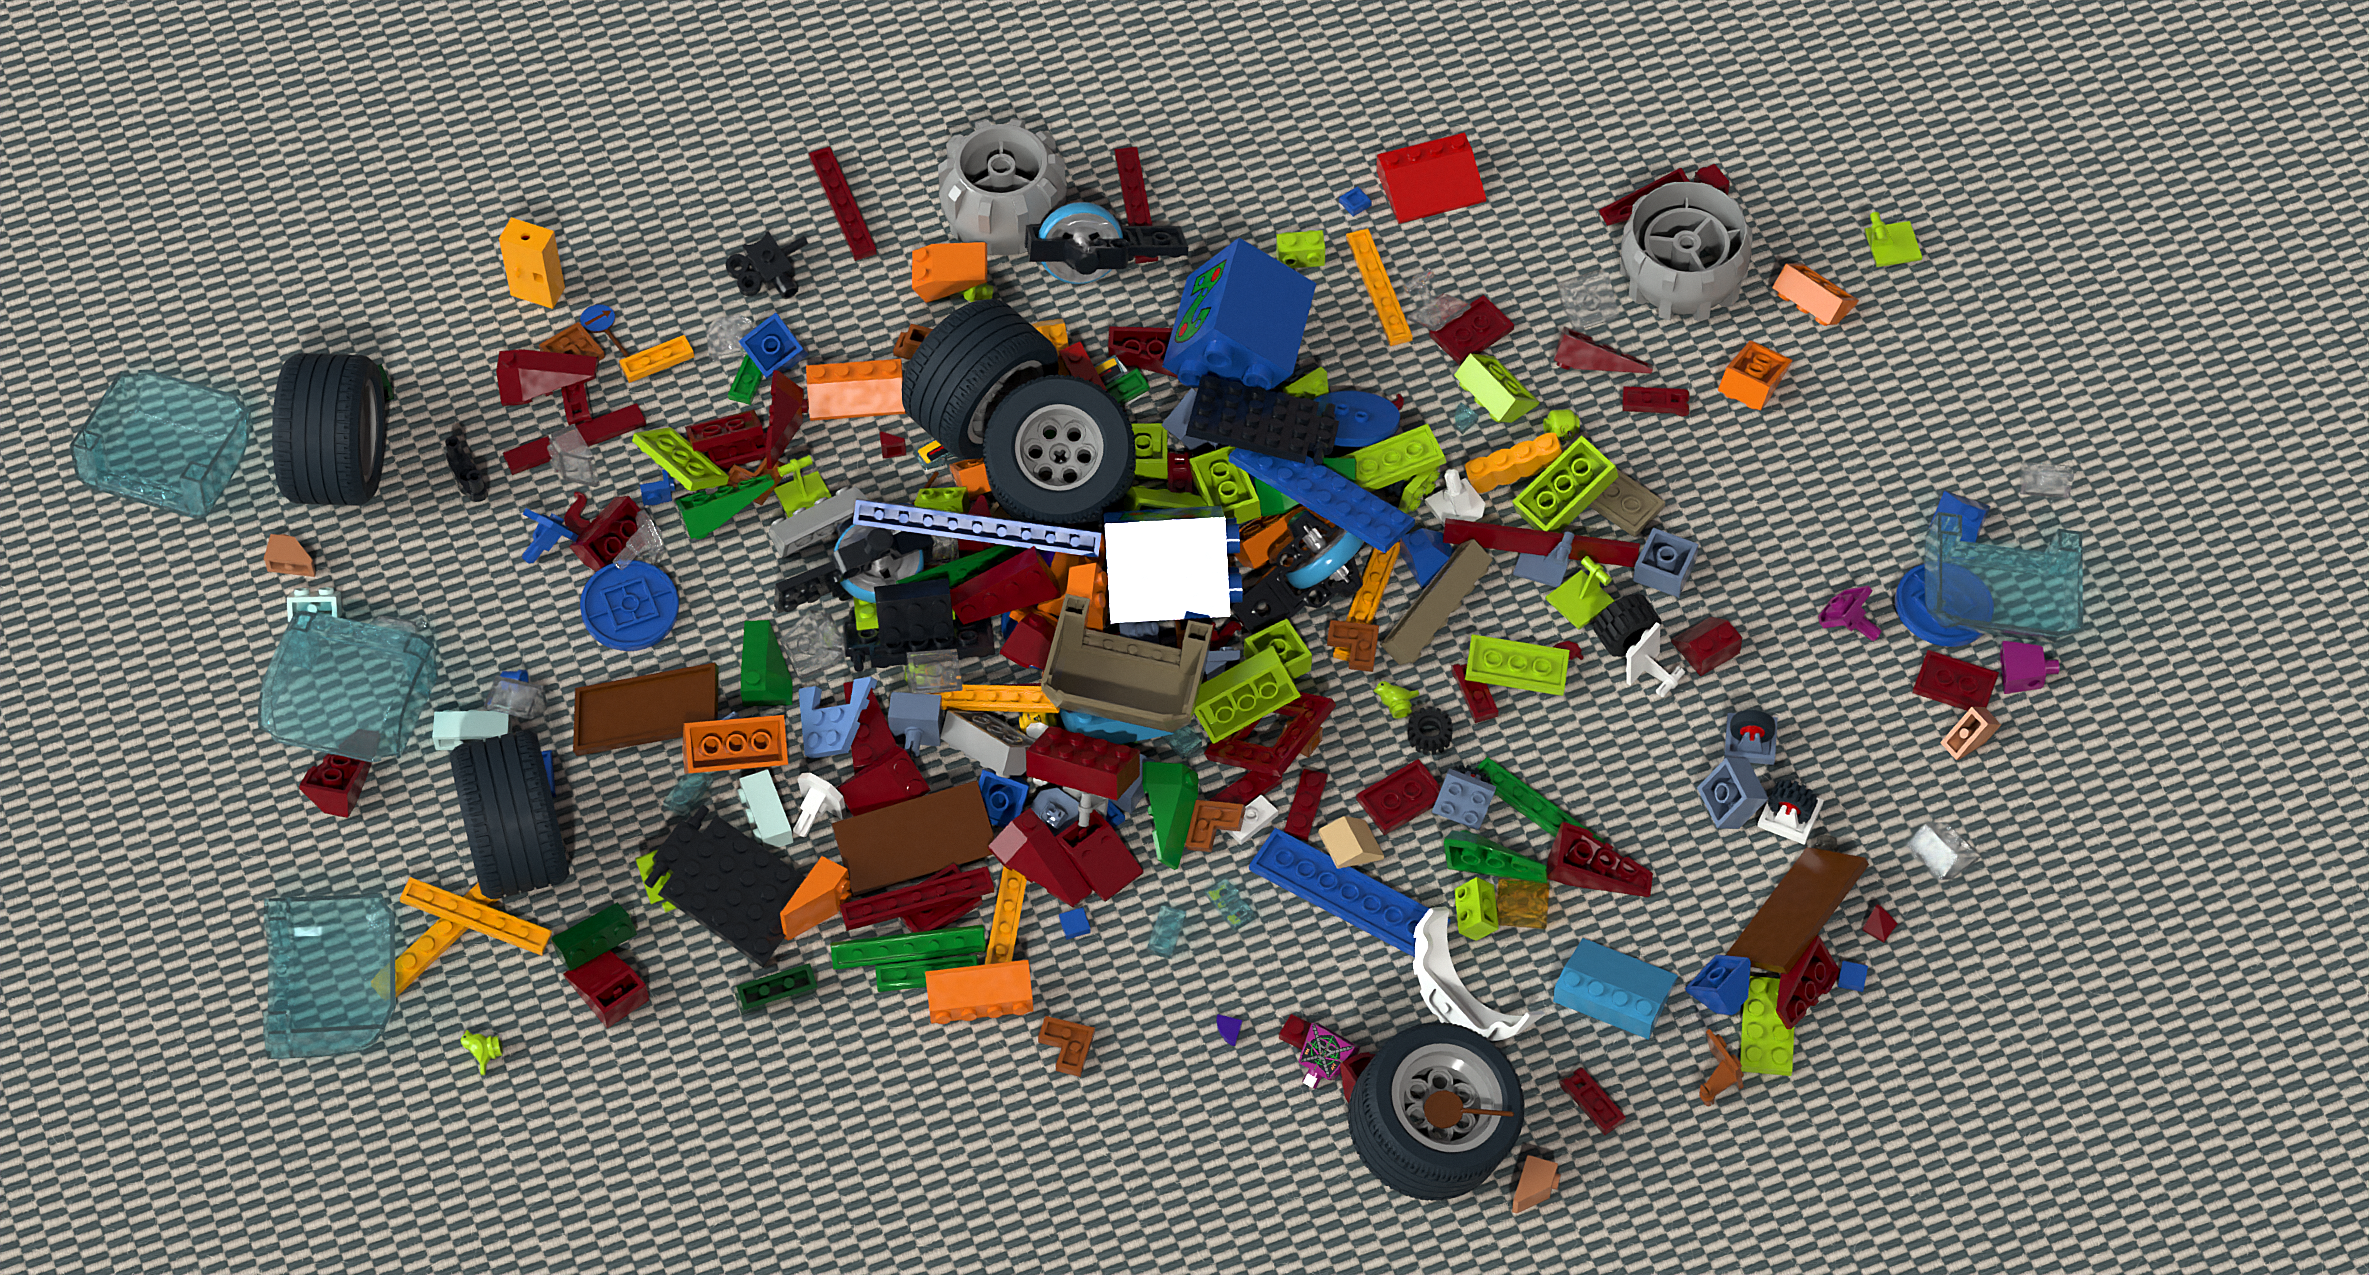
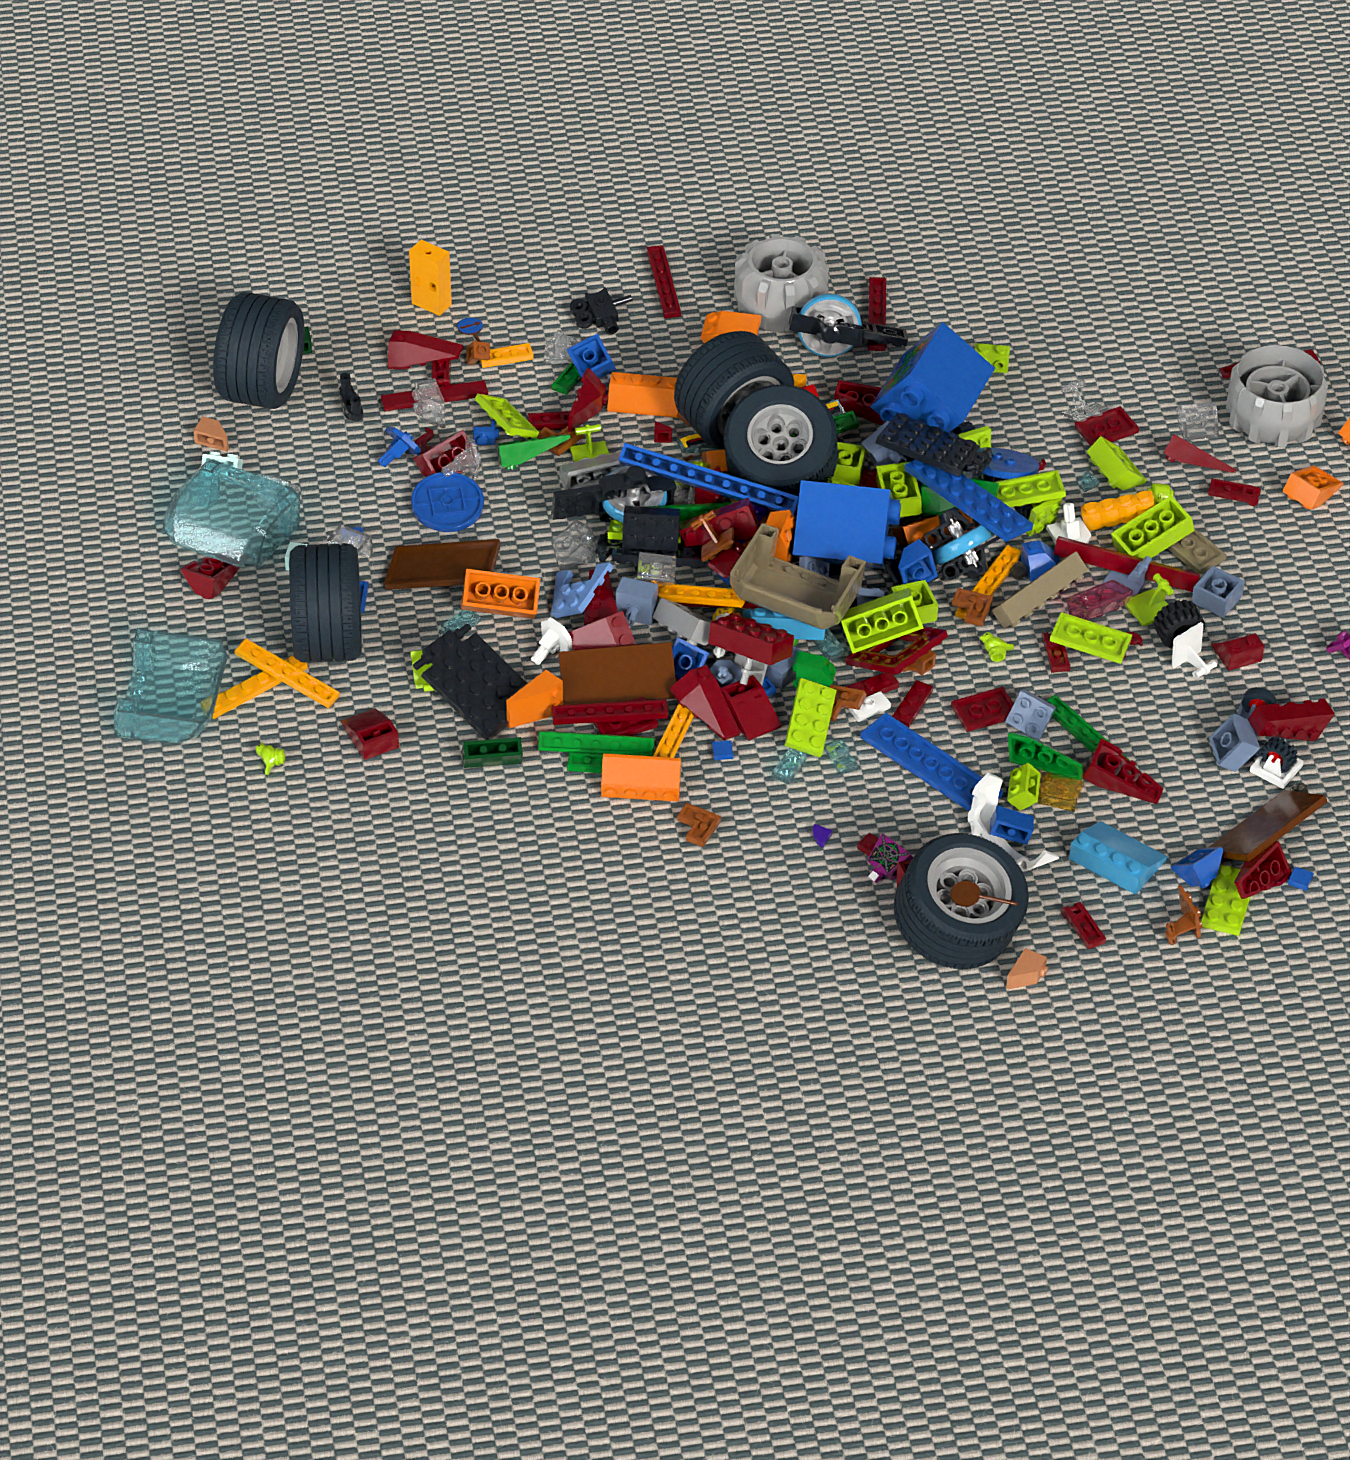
camera: 10 degrees right, 10 degrees down
(162, 442) = (139, 349): clear light blue slope -> none
(573, 341) = (449, 333): dark orange plate -> none
(593, 936) = (368, 699): dark green brick -> none
(619, 363) = (477, 351): none -> dark orange bracket
(724, 431) = (543, 405): dark red plate -> none
(763, 668) = (534, 555): green wedge -> none
(765, 810) = (513, 641): light aqua brick -> none
(1008, 617) = (718, 542): none -> dark orange plate
(1180, 857) = (810, 717): none -> lime plate
(1221, 639) = (867, 583): dark red piece -> none
(1272, 599) = (917, 563): none -> blue slope
(1350, 842) = (939, 730): tan slope -> none
(1355, 201) = (1039, 336): blue tile -> none
(1379, 287) = (1044, 391): light orange tile -> none
(1402, 570) = (1019, 571): none -> clear smoke plate
(1430, 178) = (1098, 328): red slope -> none
(1430, 718) = (1016, 663): black tyre -> none
(1472, 971) = (1011, 825): none -> blue brick
(1515, 605) = (1099, 600): none -> clear pink slope
(1800, 747) = (1292, 720): none -> dark red wedge
(1880, 924) = (1329, 848): dark red slope -> none

